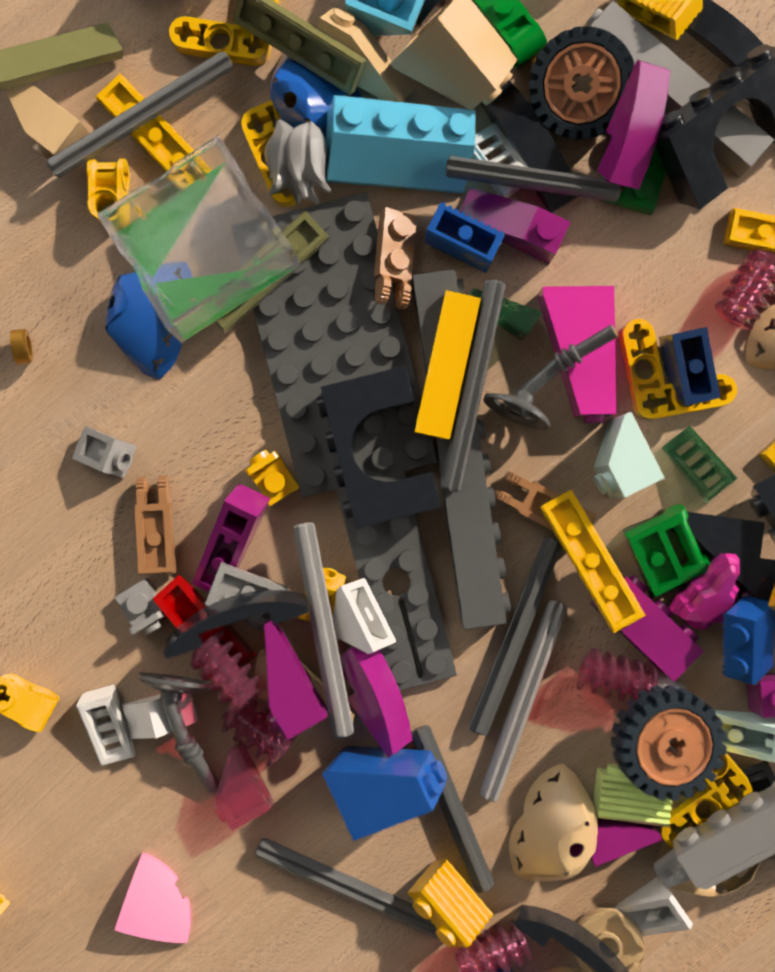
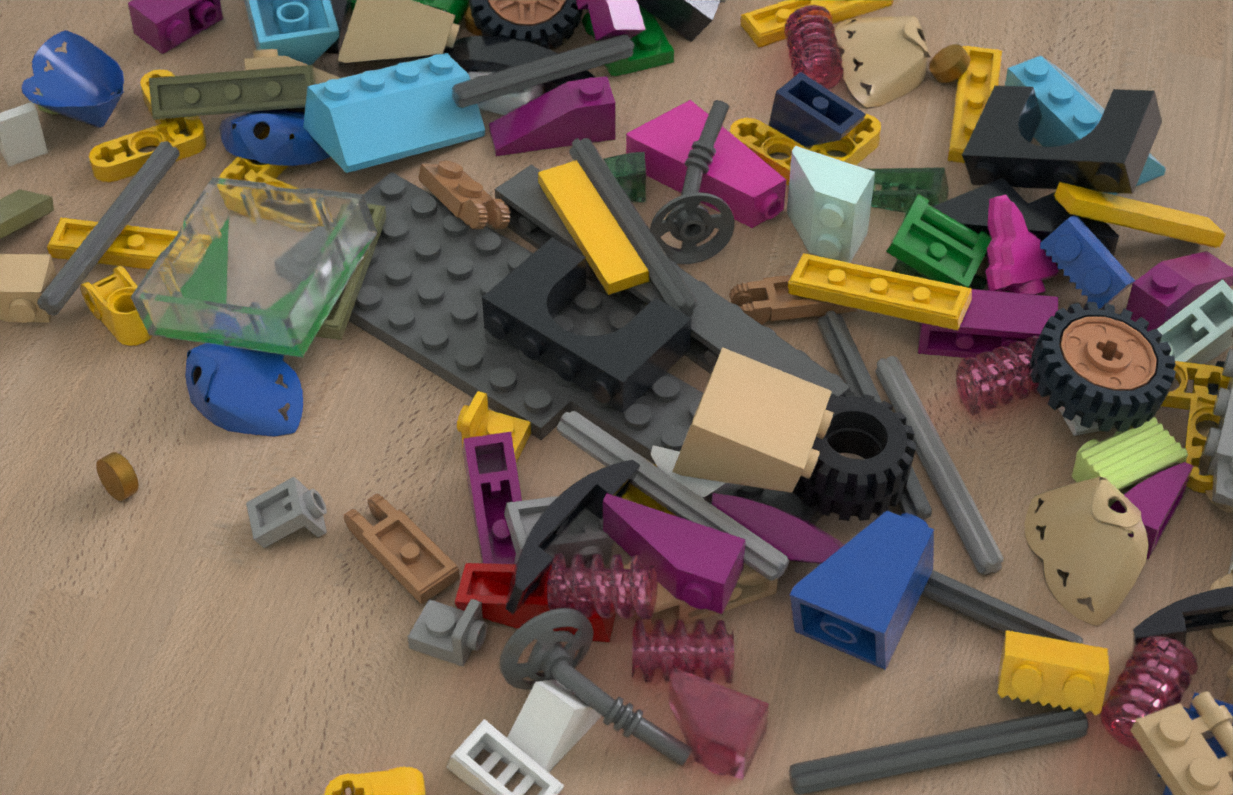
camera: 35 degrees left, 40 degrees down
(297, 160) = (307, 157): light grey hair -> none
(389, 650) = (754, 426): none -> tan slope
(462, 713) = (866, 484): none -> black tyre
(463, 237) = (515, 141): blue brick -> none

